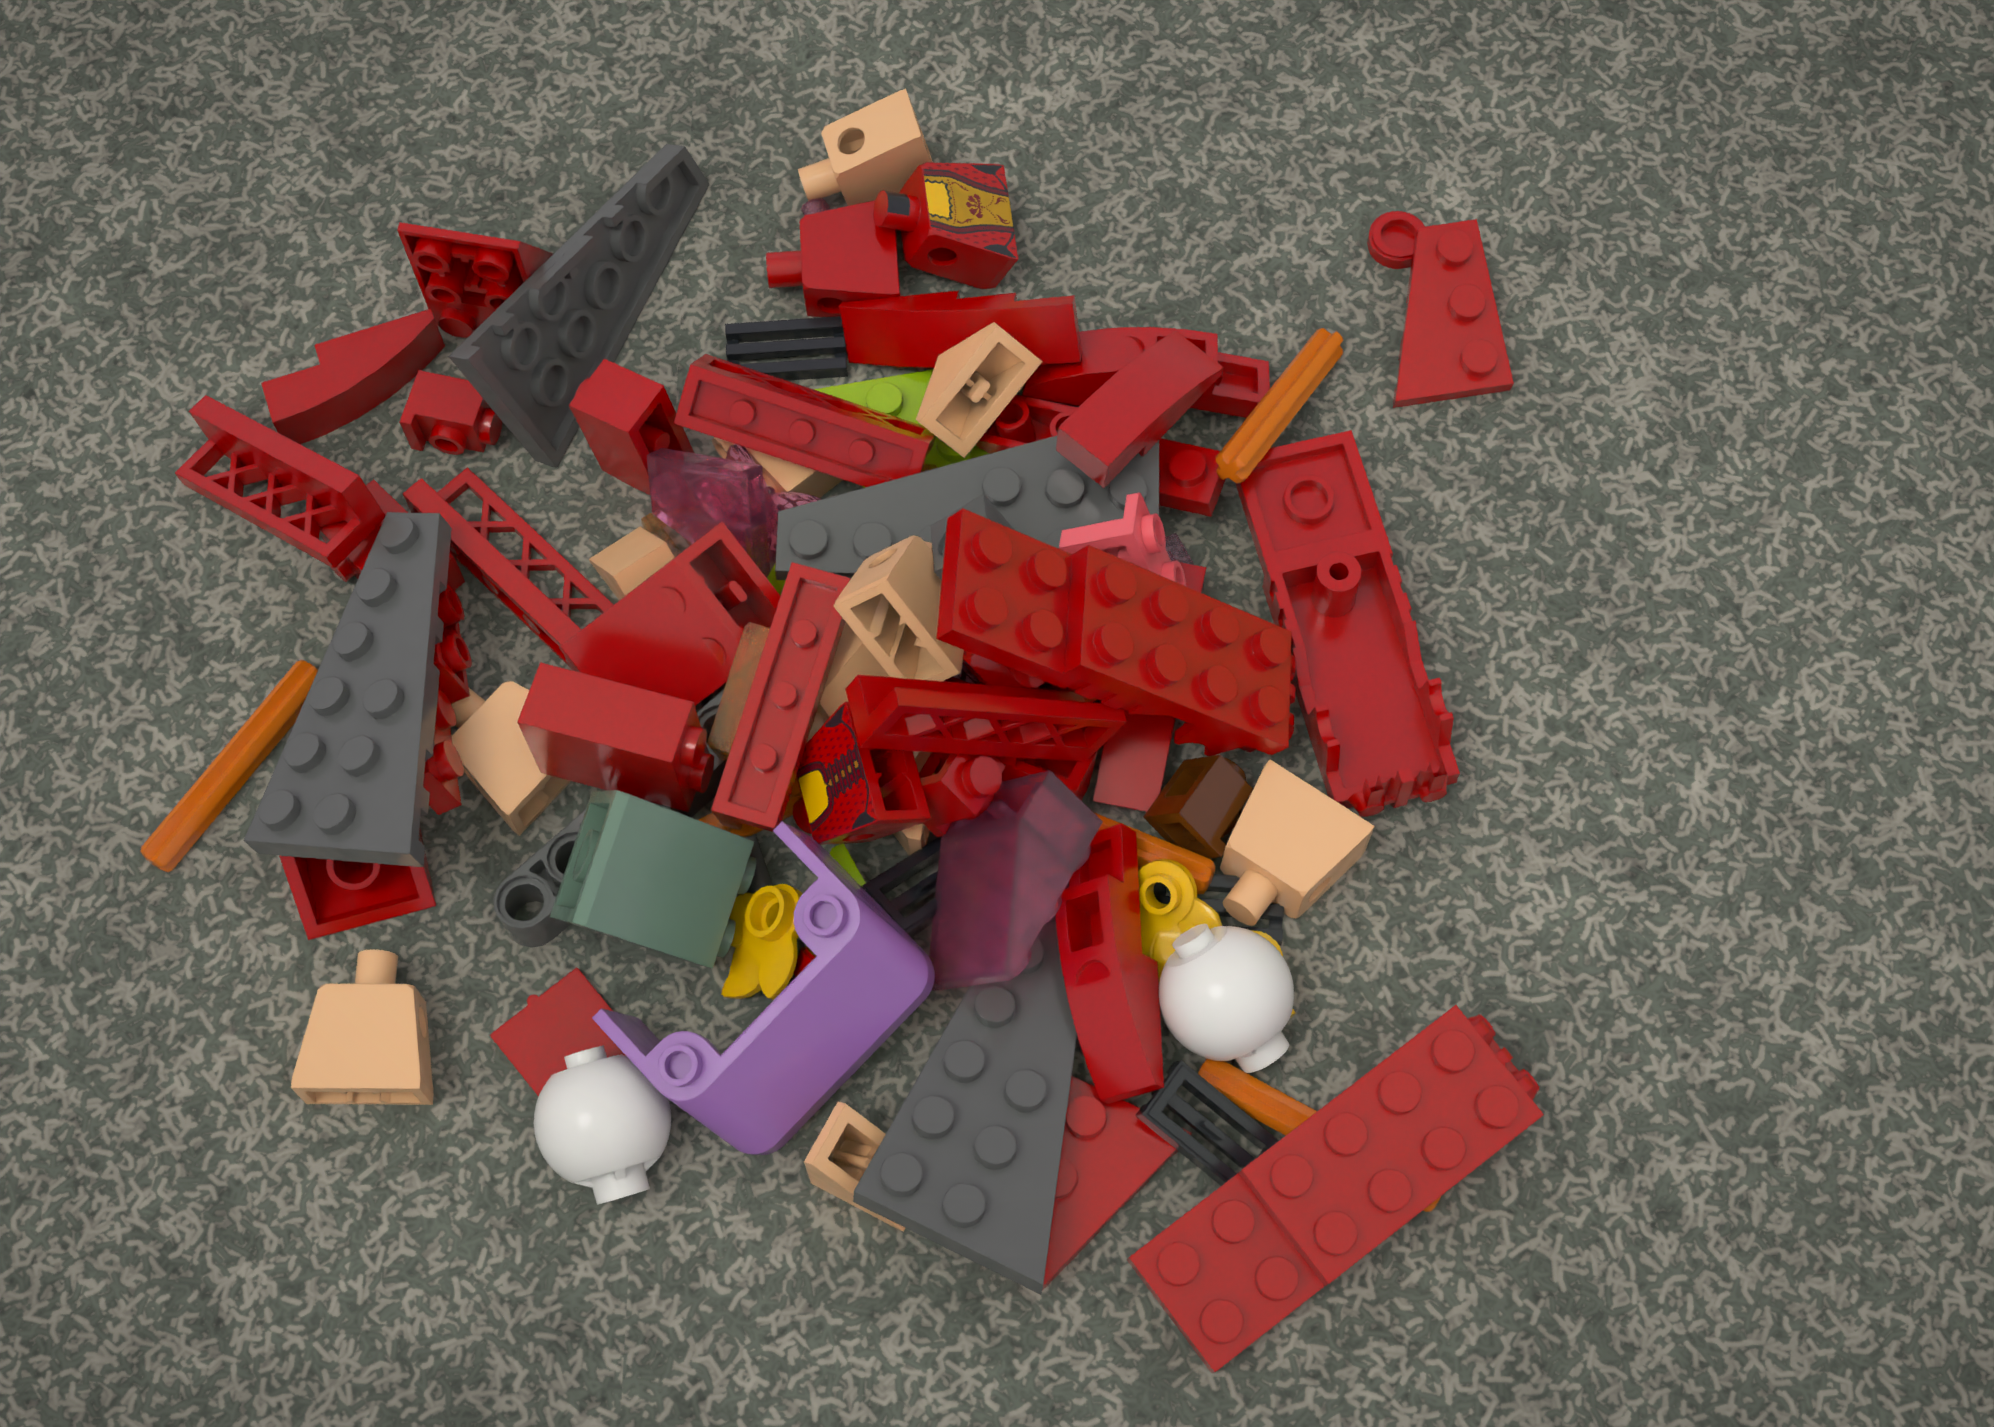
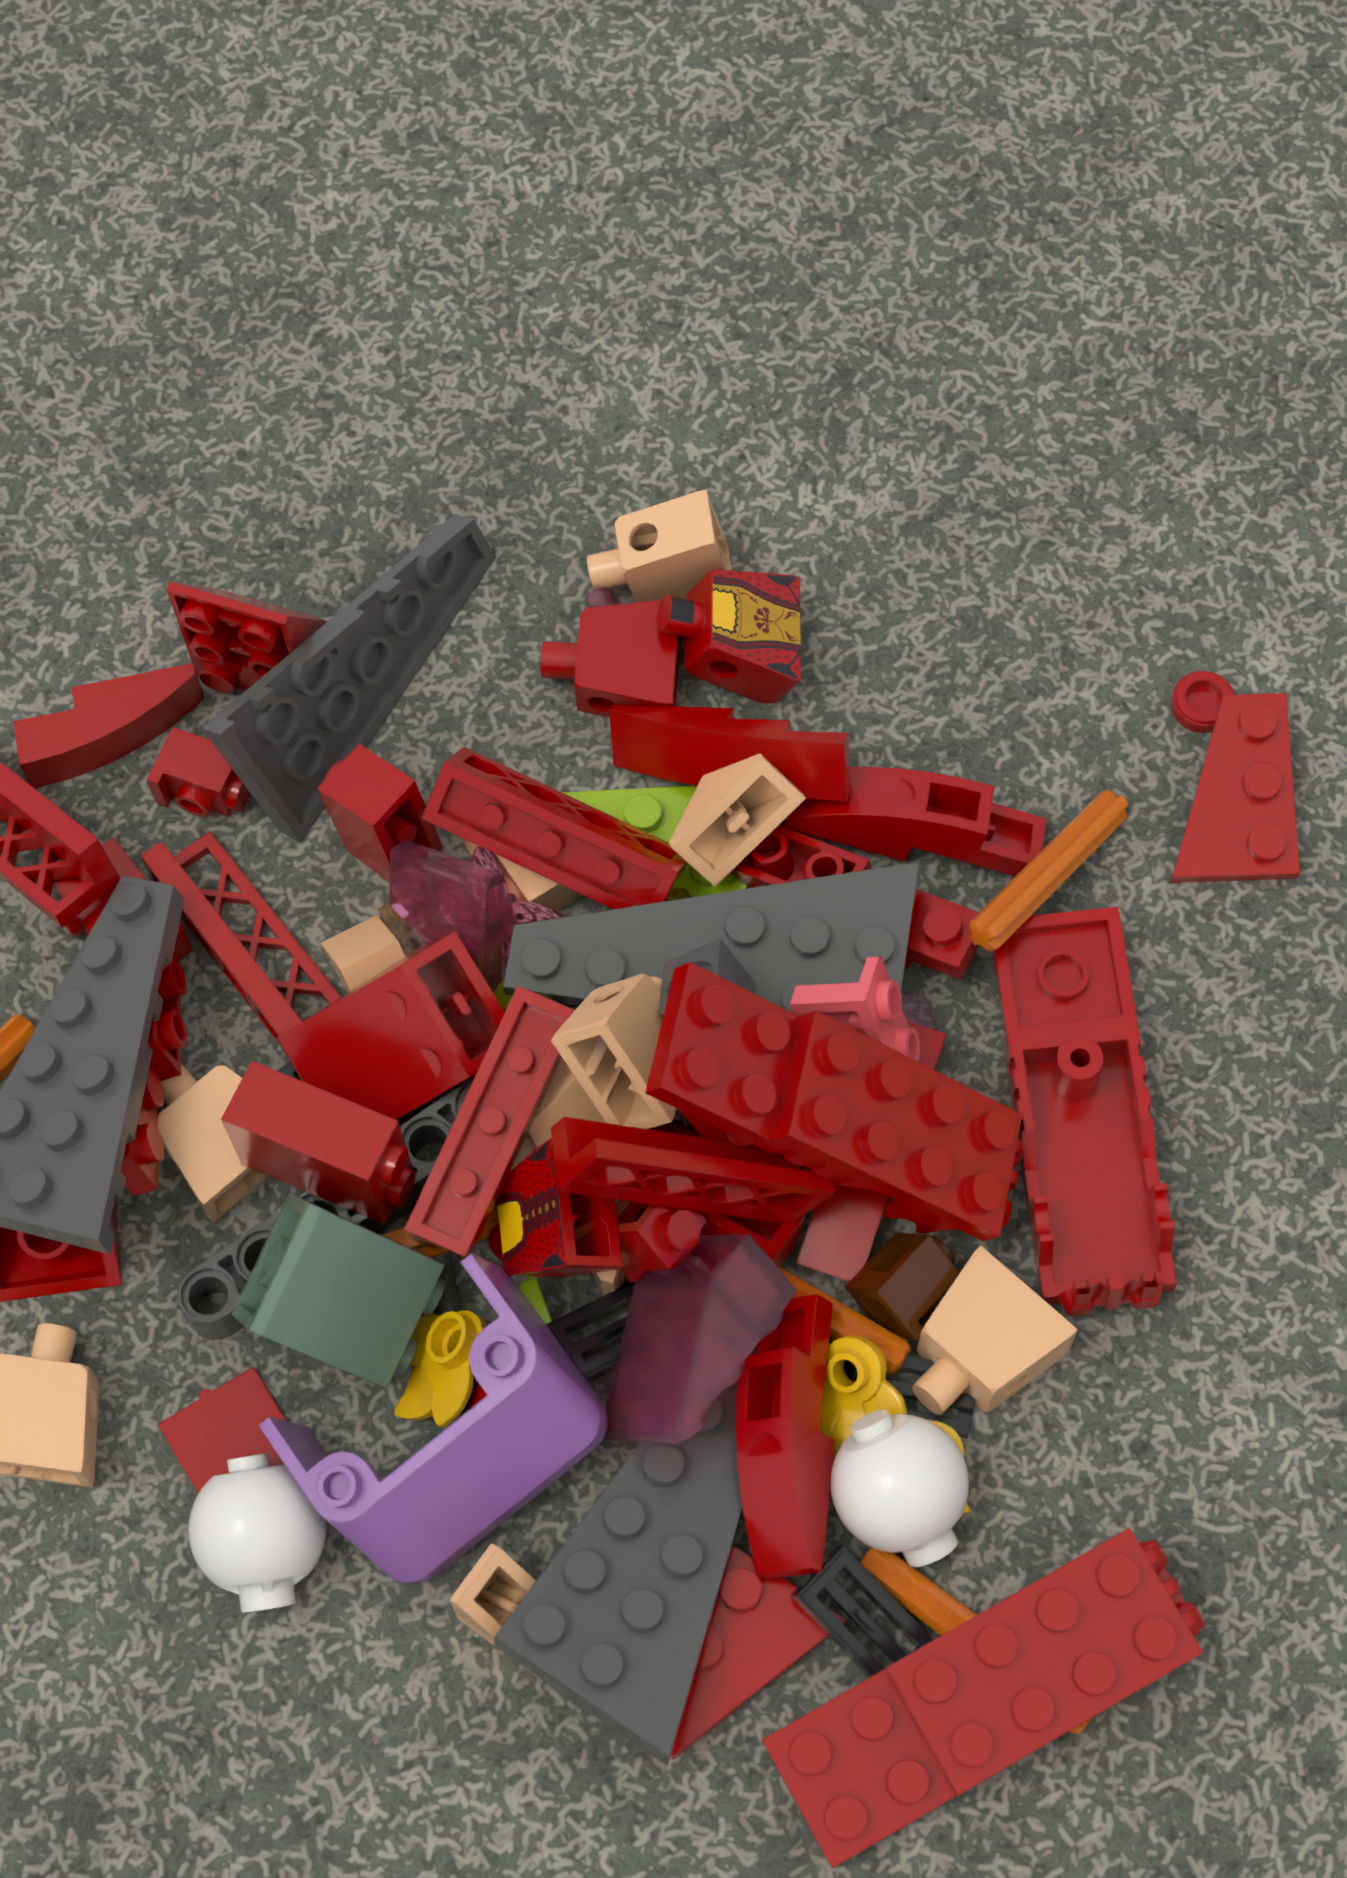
camera: 10 degrees right, 0 degrees up
(737, 689) = (447, 1107): clear orange tile -> none
(784, 330) = (553, 724): black tile -> none
(1136, 407) = (894, 860): red slope -> none

